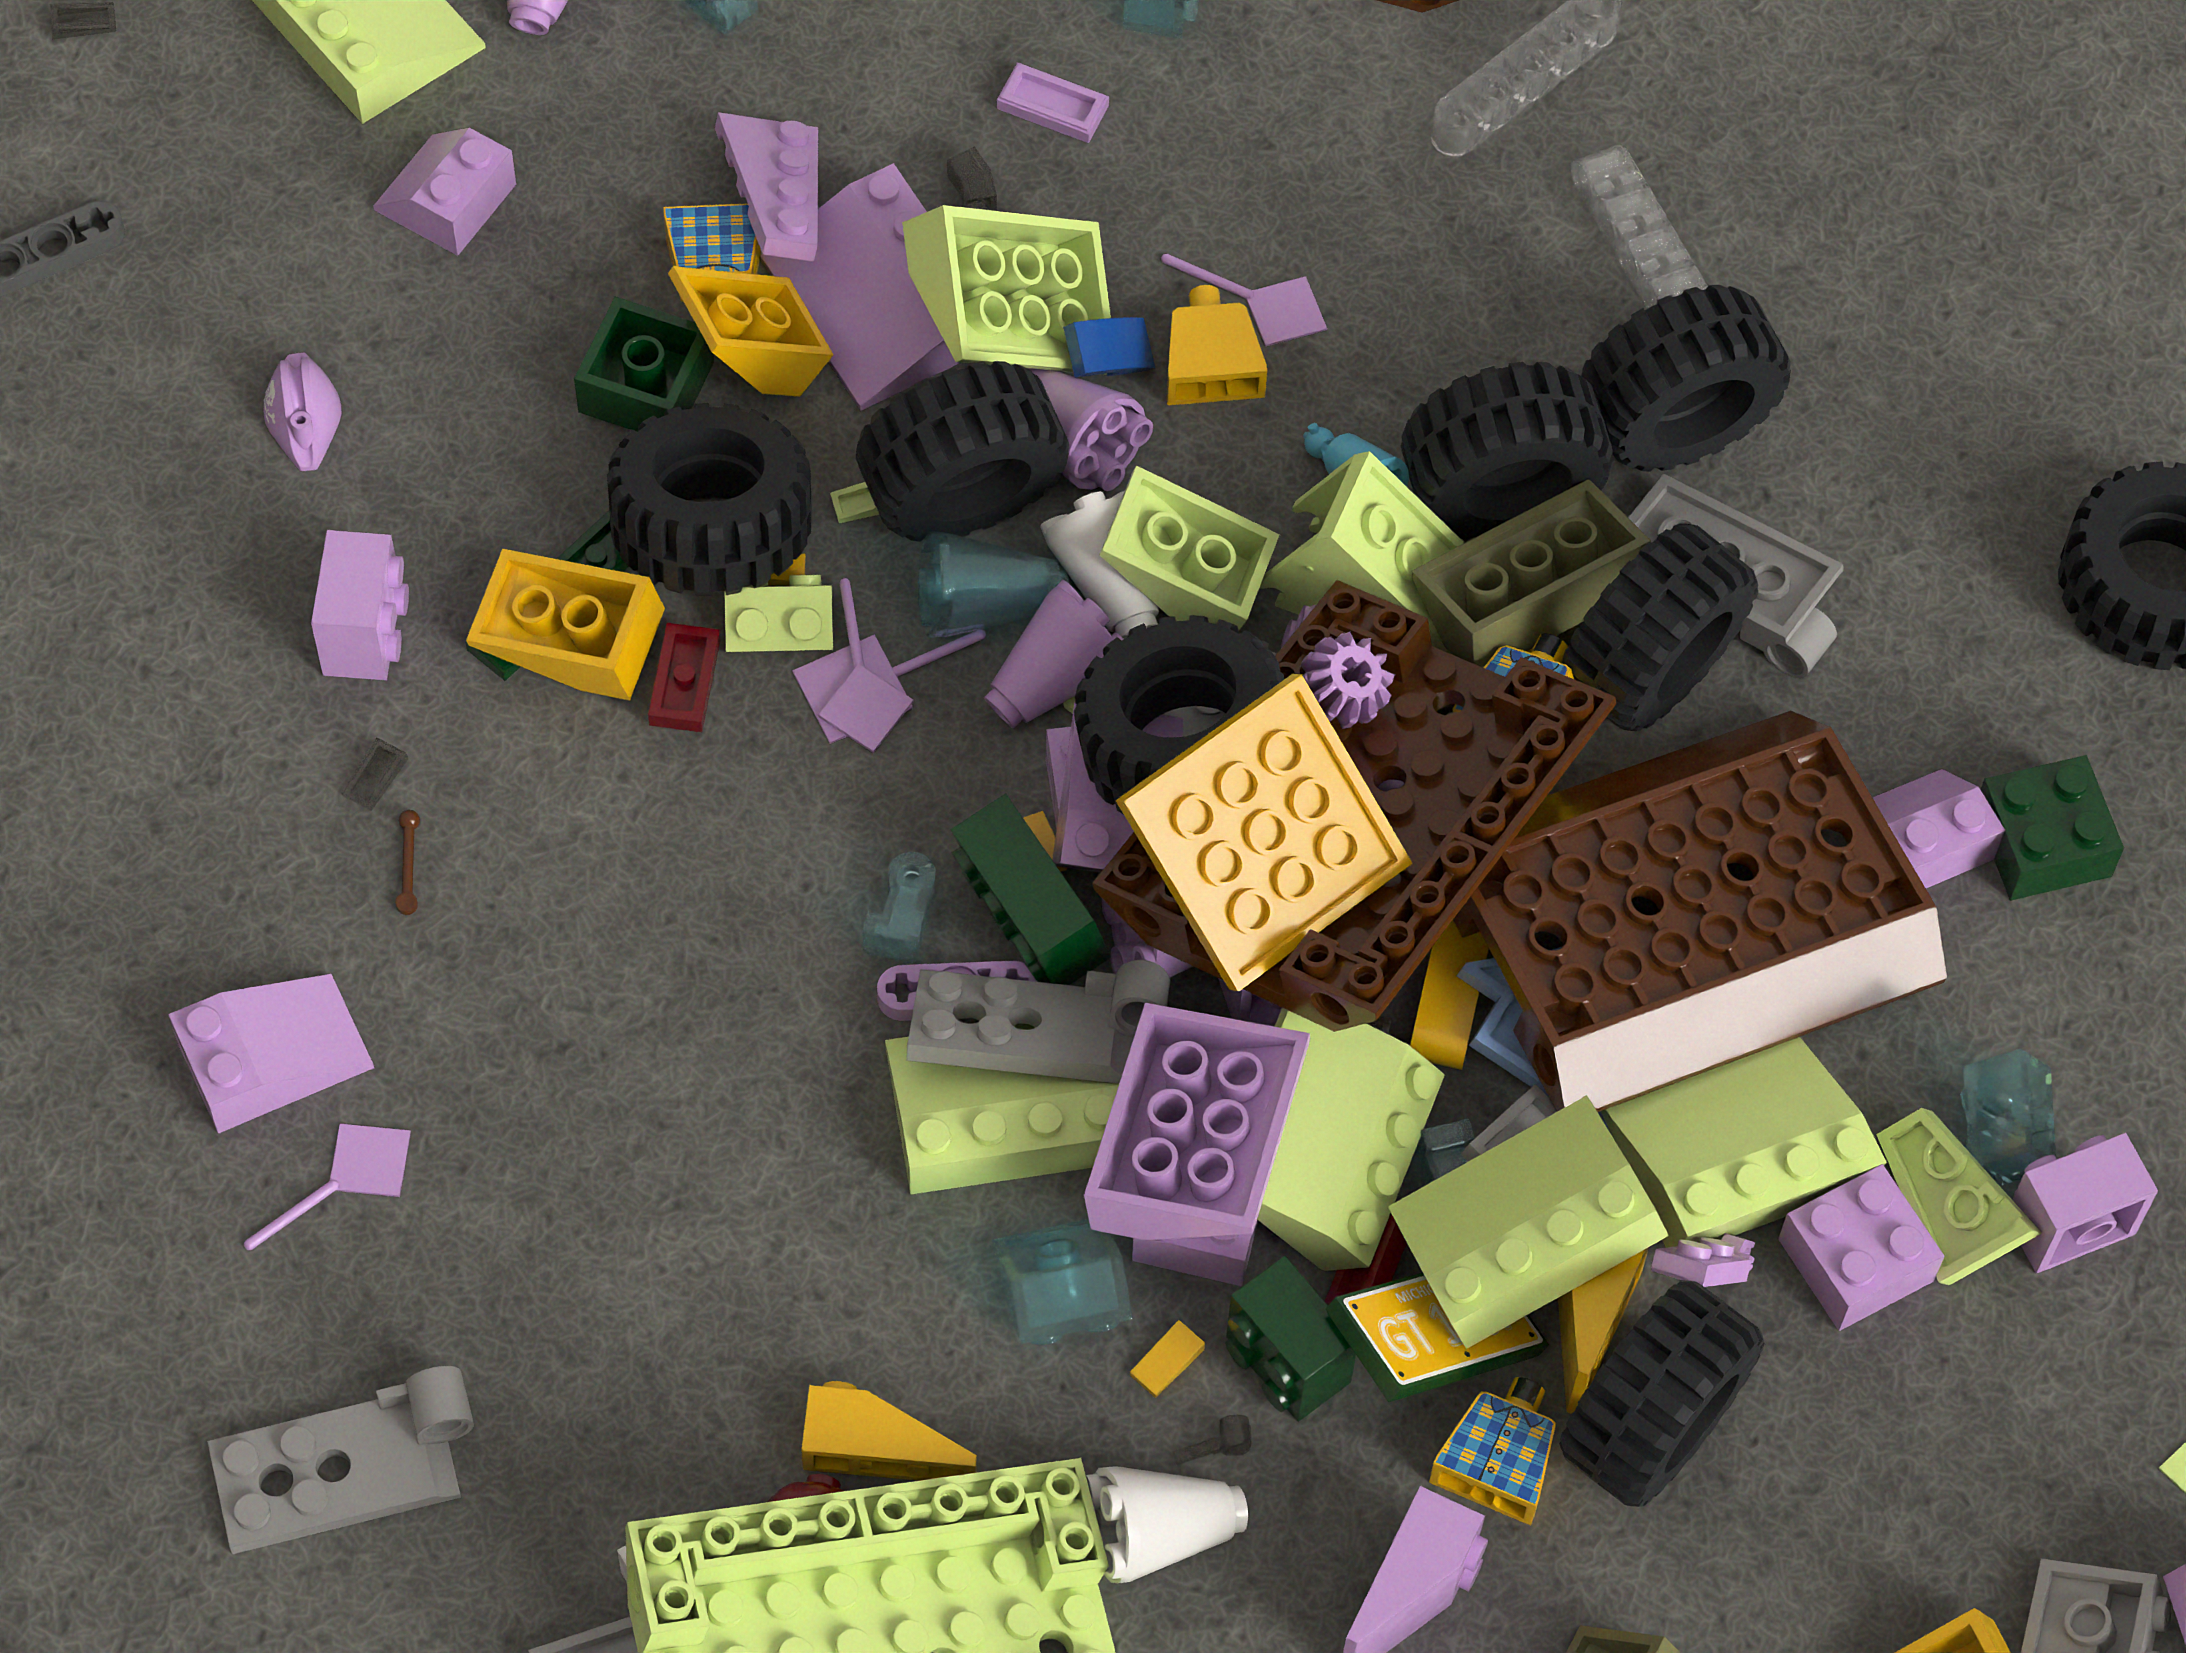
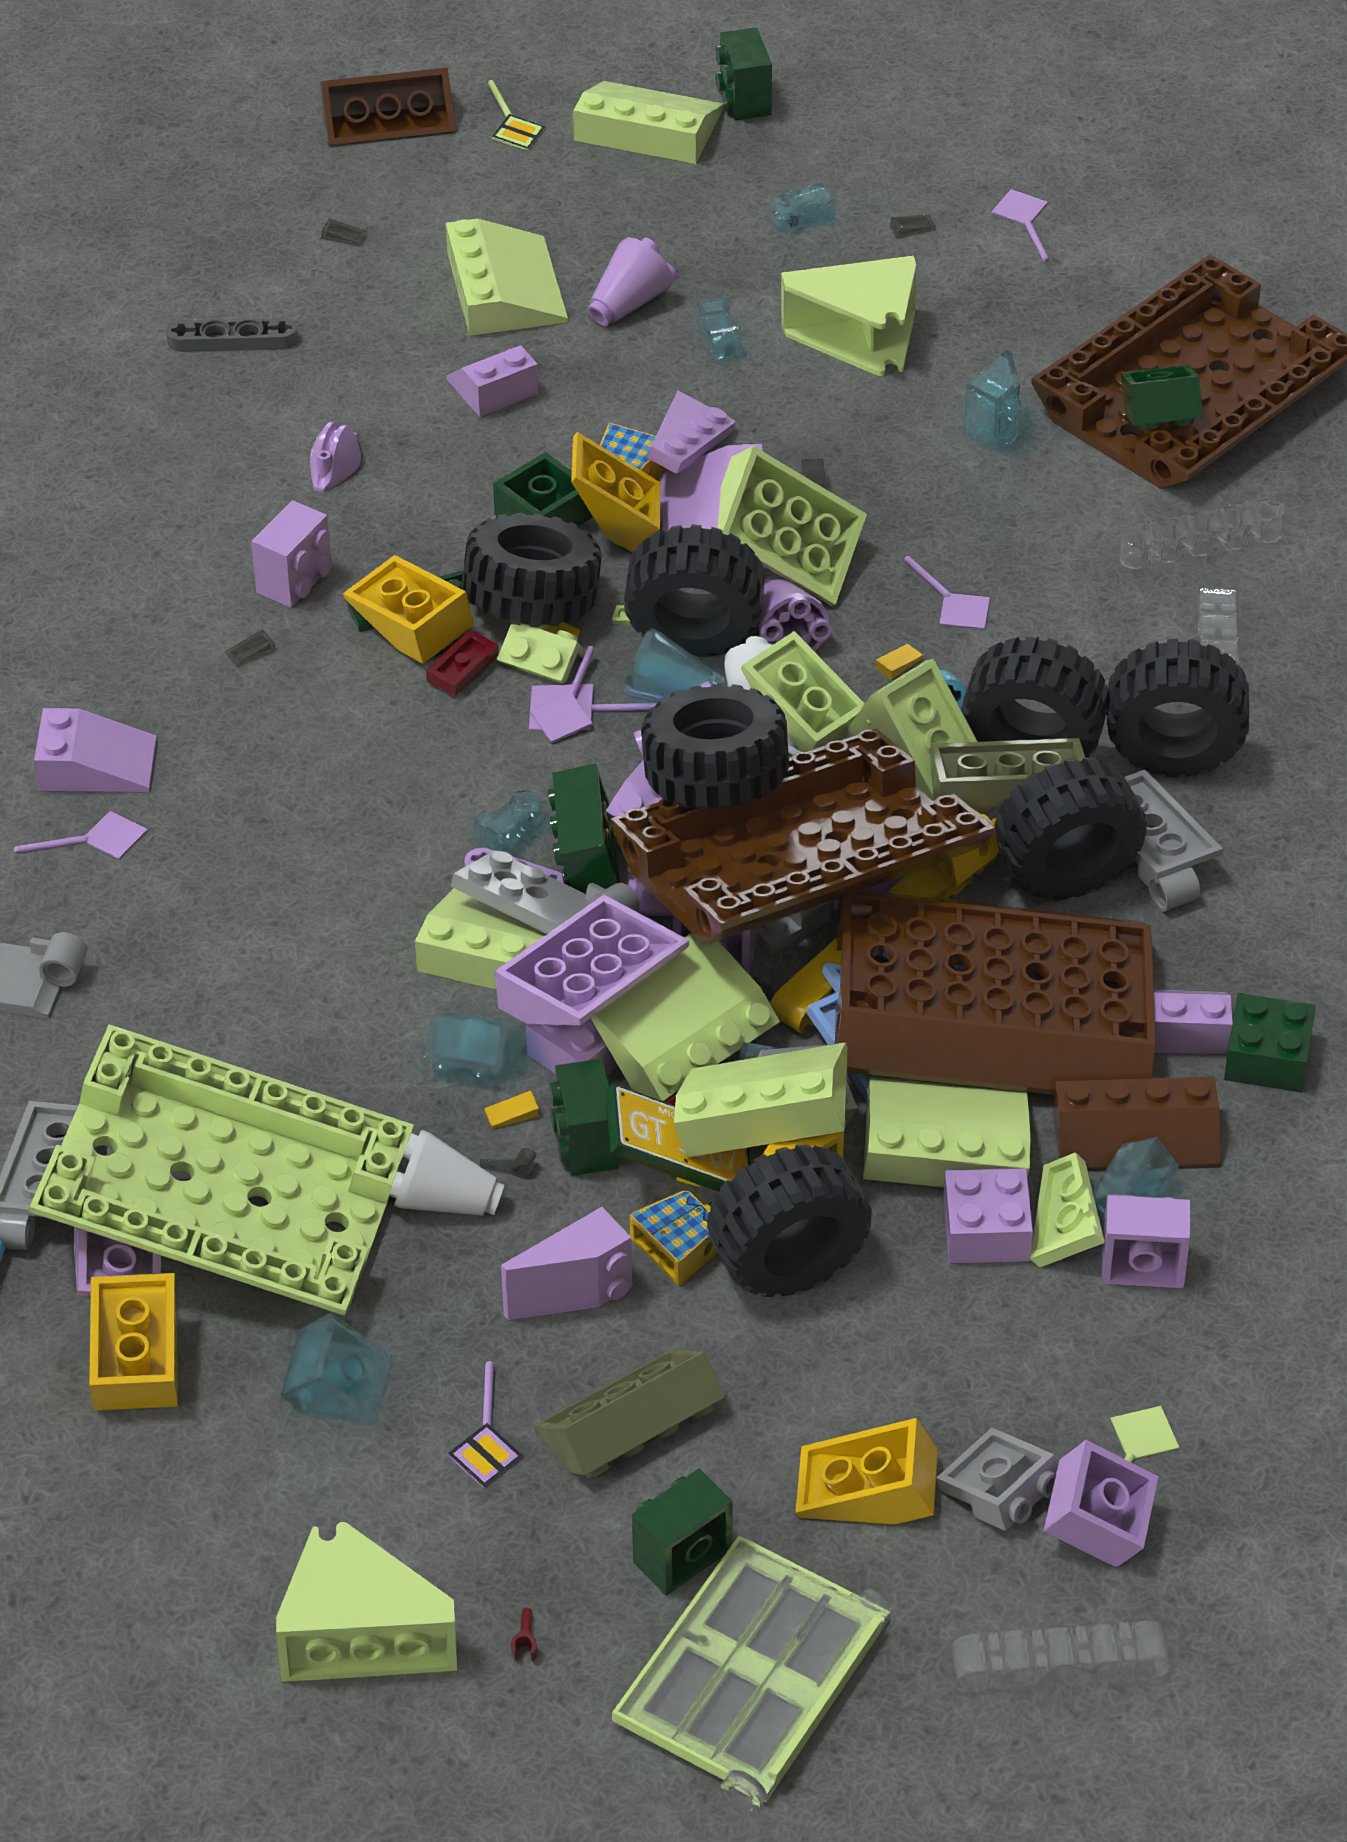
camera: 30 degrees right, 15 degrees down
(406, 901) = (224, 717): reddish brown hinge -> none
(869, 1437) = (300, 1064): yellow slope -> none
(1052, 102) = (891, 457): lavender tile -> none
(1109, 346) = (833, 580): blue slope -> none
(1213, 352) = (896, 610): yellow torso -> none
(1249, 428) = (898, 661): none -> yellow piece
(1264, 831) = (717, 806): yellow plate -> none
(1354, 662) = (837, 769): lavender gear -> none
(1707, 1262) = (880, 1175): lavender hinge -> none
(1971, 1008) = (1104, 1114): none -> reddish brown slope

